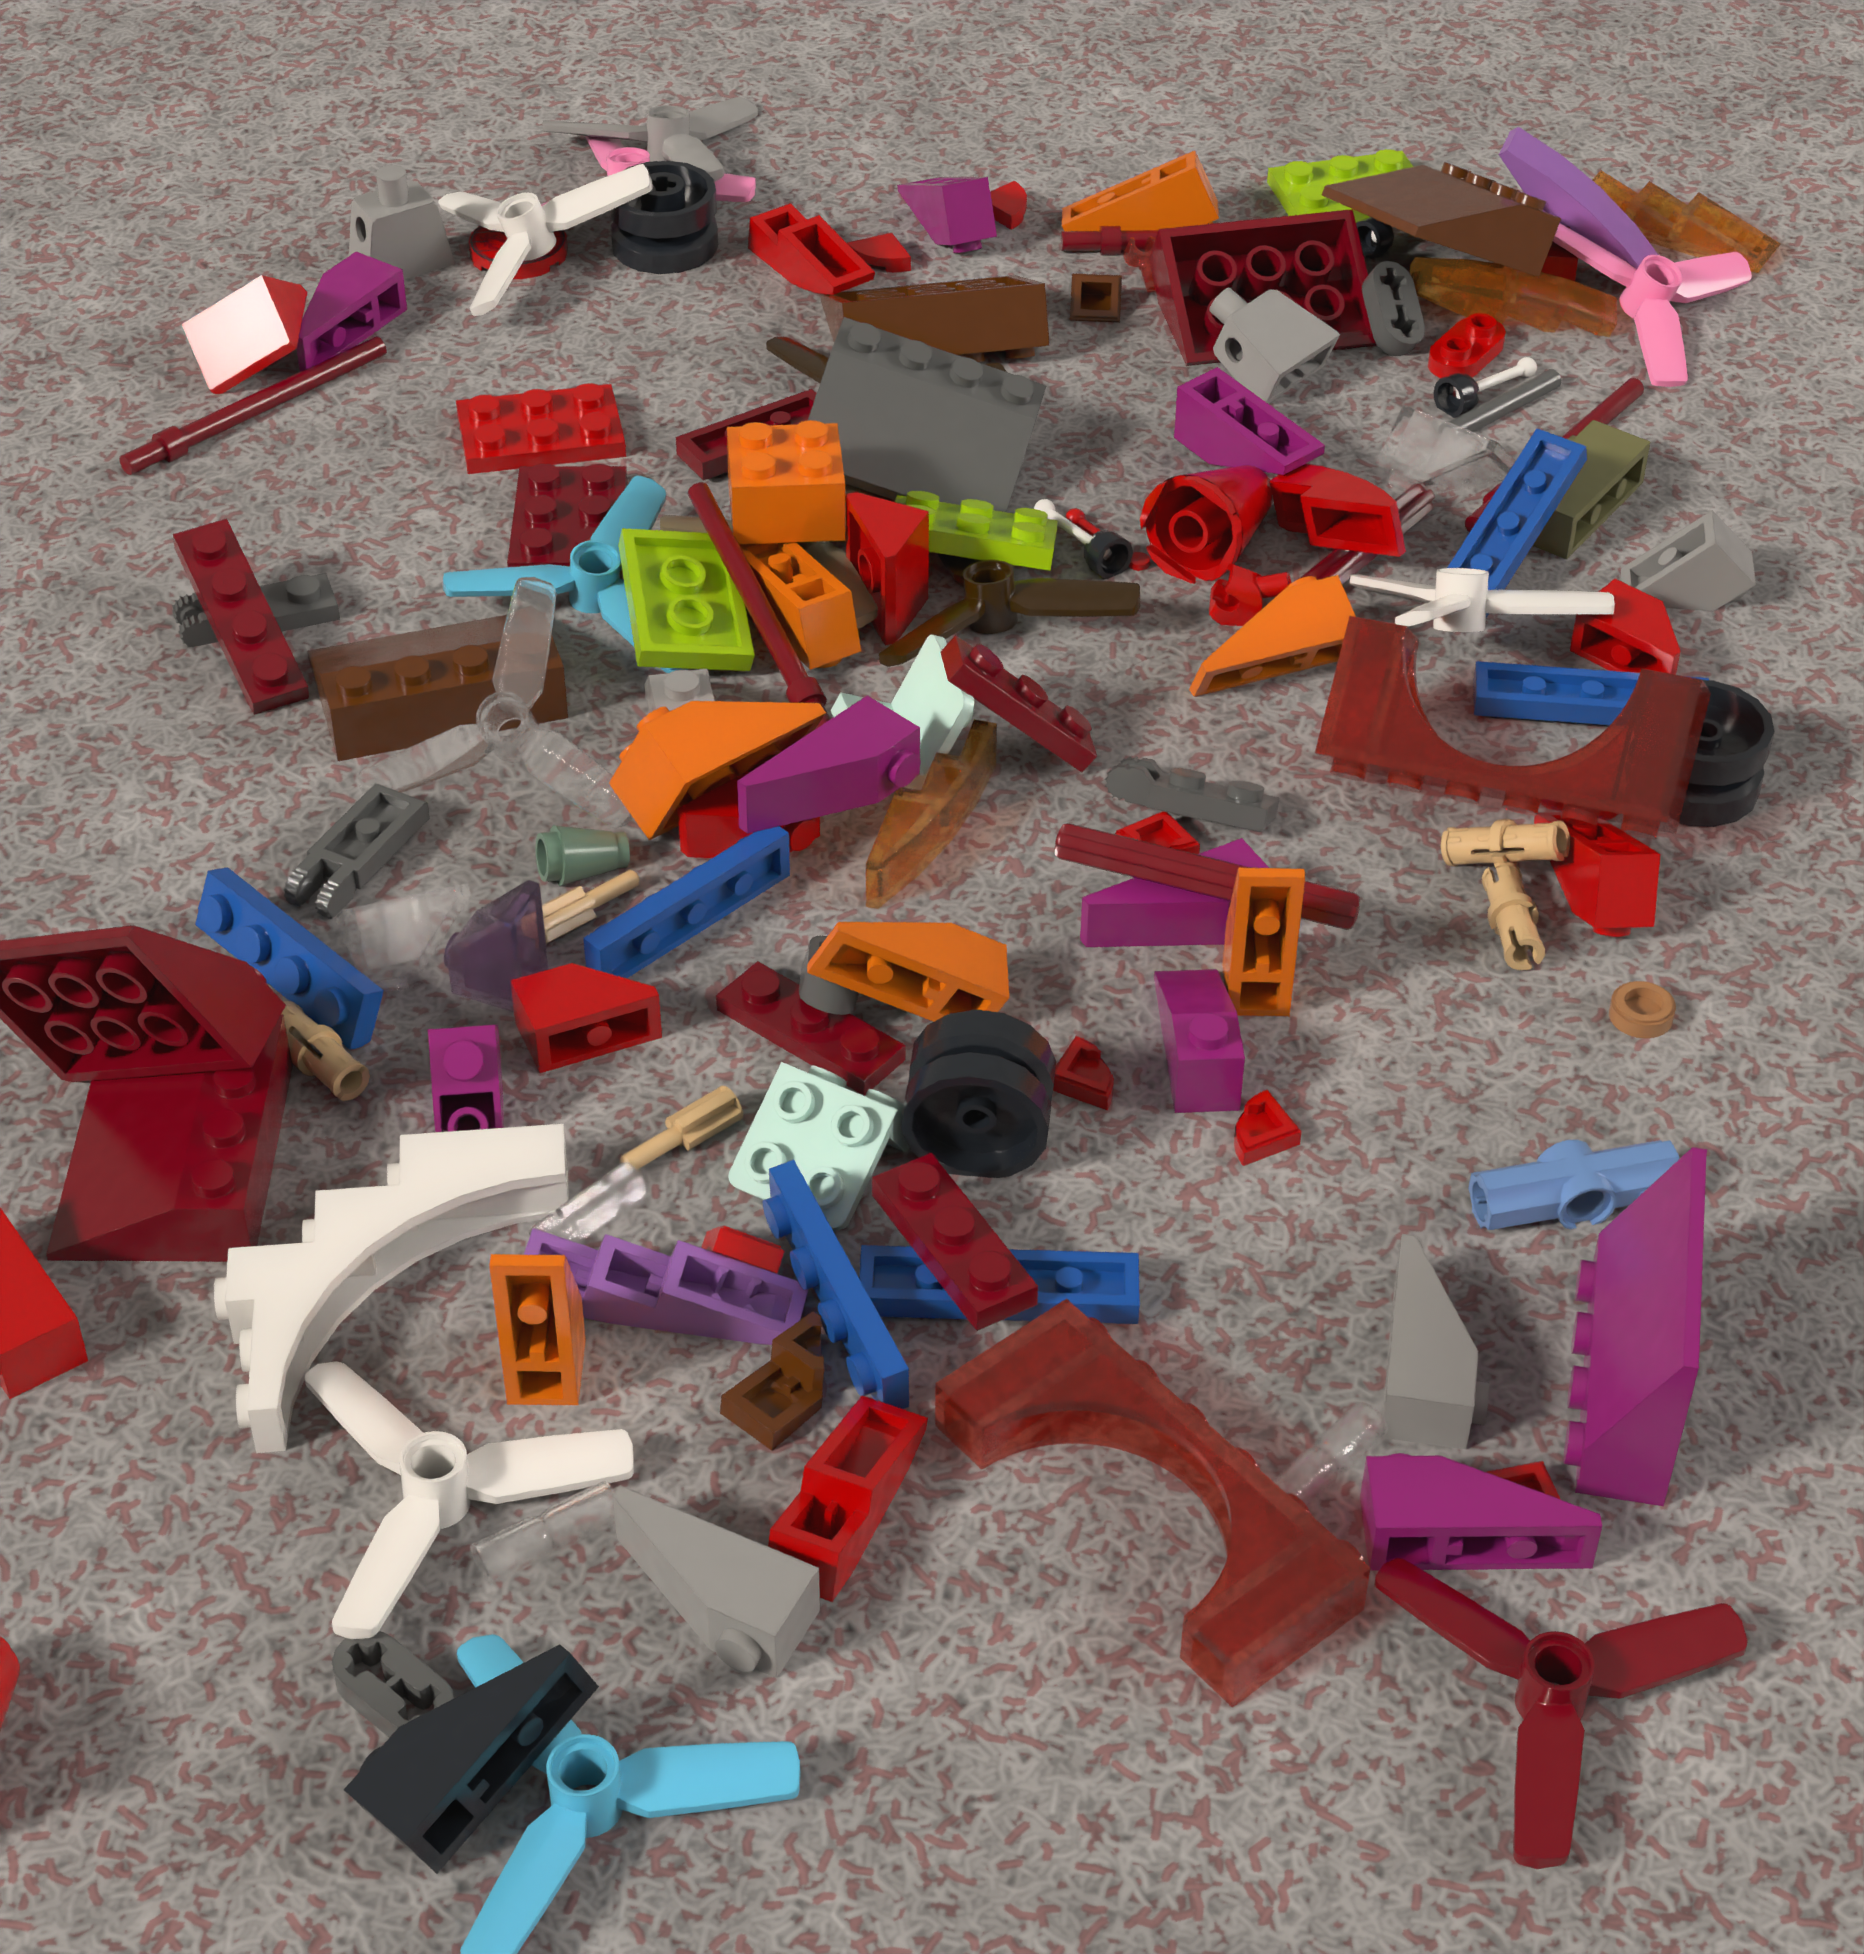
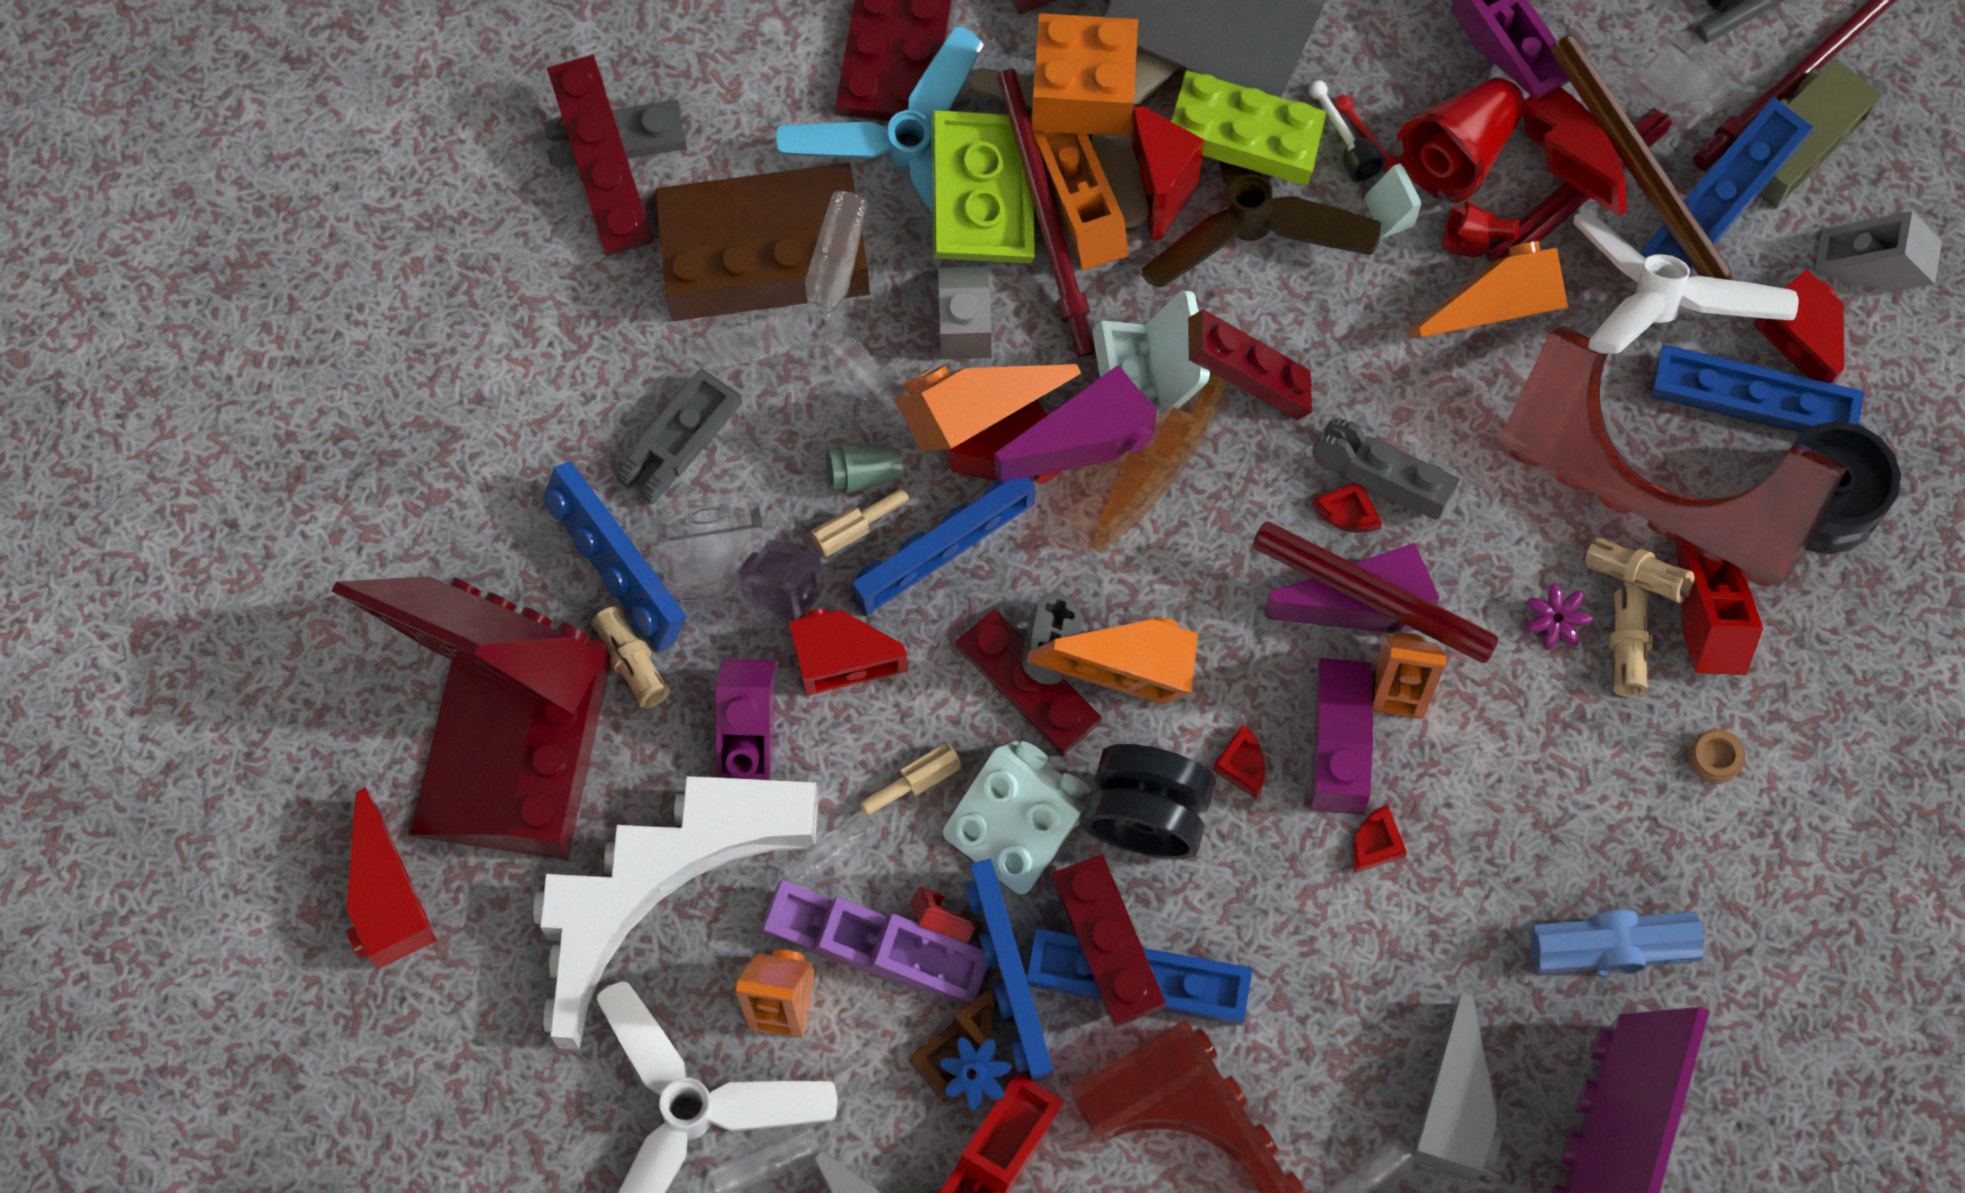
camera: 10 degrees right, 25 degrees up
(811, 1403) = (985, 1071): none -> blue plant
(1156, 576) = (1394, 201): none -> light aqua slope
(1413, 506) = (1639, 159): none -> reddish brown axle
(1427, 893) = (1564, 623): none -> magenta plant

